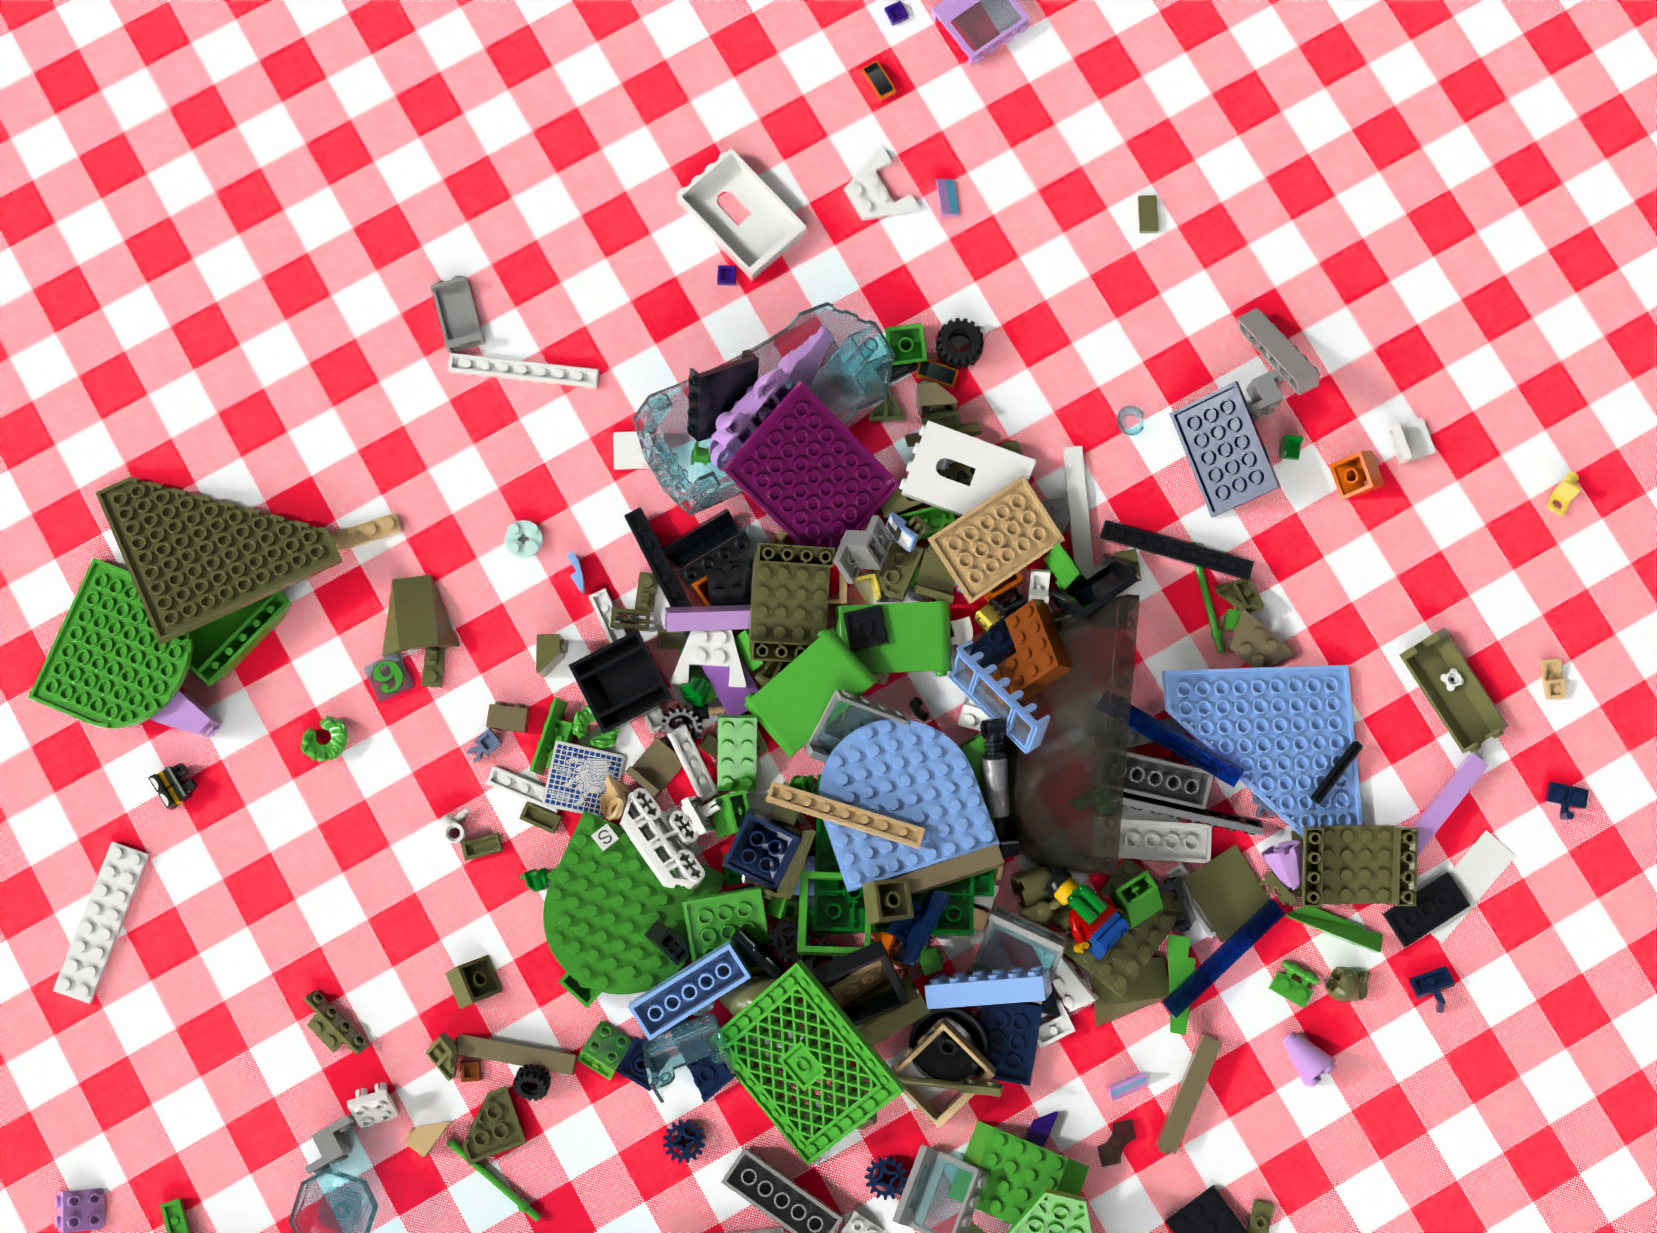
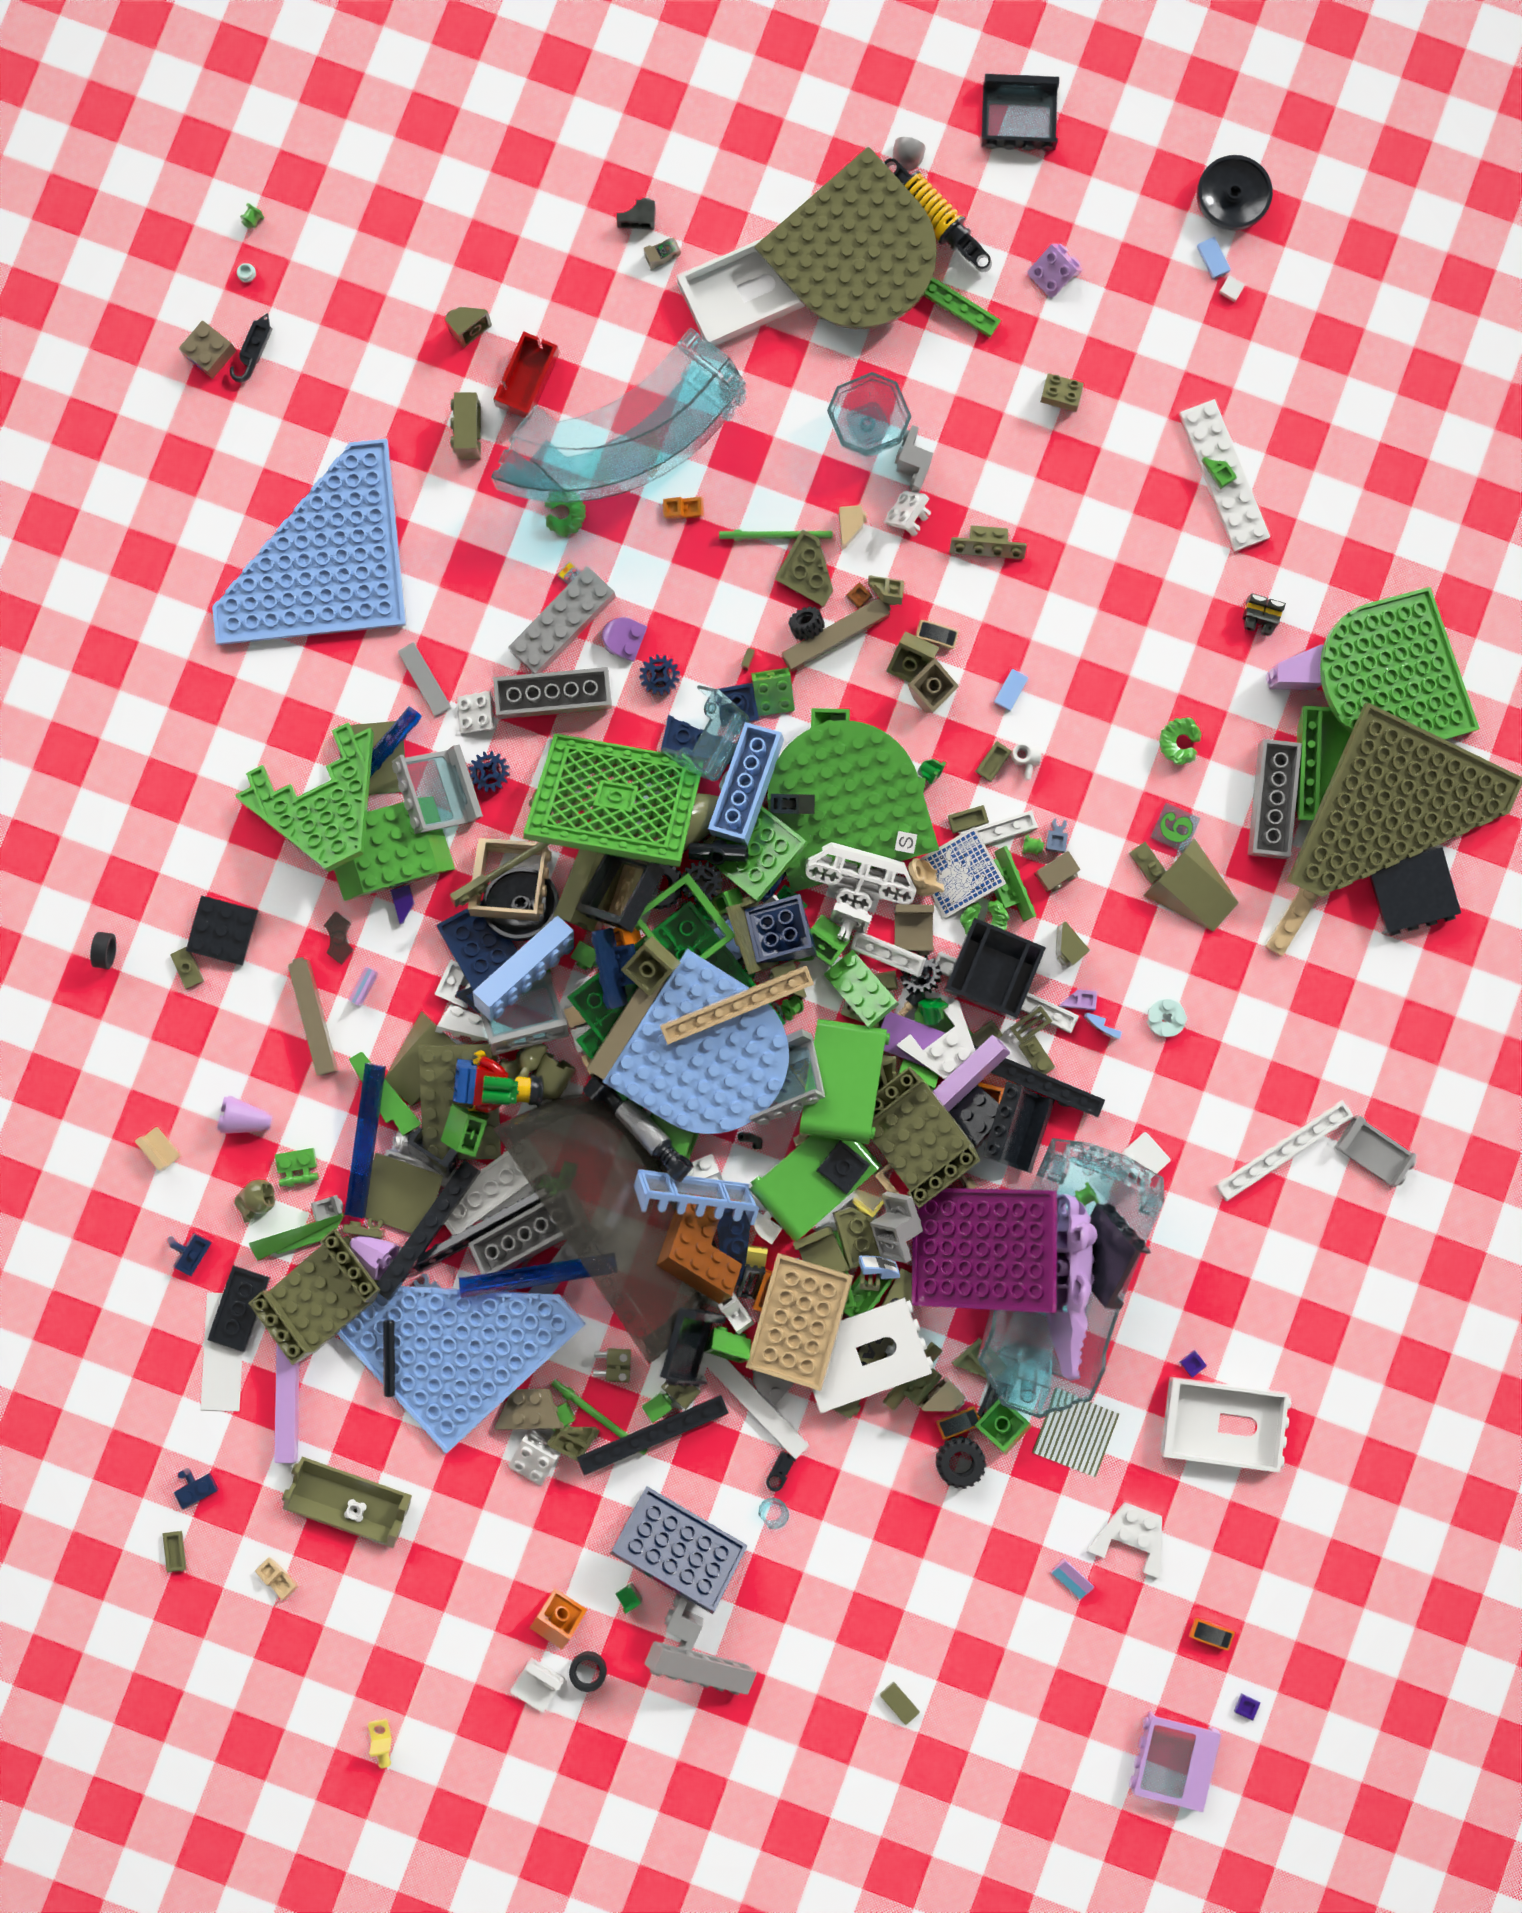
camera: 135 degrees right, 5 degrees up
(102, 926) = (1220, 471): none -> bright green tile
(165, 1100) = (1062, 392): none -> olive plate
(254, 475) = (1415, 892): none -> black panel
(294, 634) = (1274, 799): none -> light grey brick
(418, 891) = (1011, 689): none -> light blue tile
(436, 986) = (937, 634): none -> slope
(477, 944) = (932, 686): none -> dark tan slope
(509, 754) = (1032, 845): none -> bright green brick
(576, 606) = (1081, 1000): none -> lavender tile
(603, 1093) = (747, 660): none -> olive tile
(687, 1198) = (623, 637): none -> medium lavender slope
(858, 290) = (1077, 1436): none -> sticker
(1099, 448) = (780, 1469): none -> black piece
(1155, 568) = (658, 1406): none -> bright green brick
(1161, 623) = (617, 1365): none -> olive piece
(1196, 934) = (400, 1141): none -> white plate
(1228, 846) = (427, 1229): none -> black plate
(1281, 607) = (534, 1457): none -> white bracket
(1295, 930) = (326, 1208): none -> light grey bracket
(1374, 409) = (588, 1687): none -> black tyre
(1395, 1090) = (158, 1148): none -> tan panel
(1618, 763) = (174, 1551): none -> olive tile

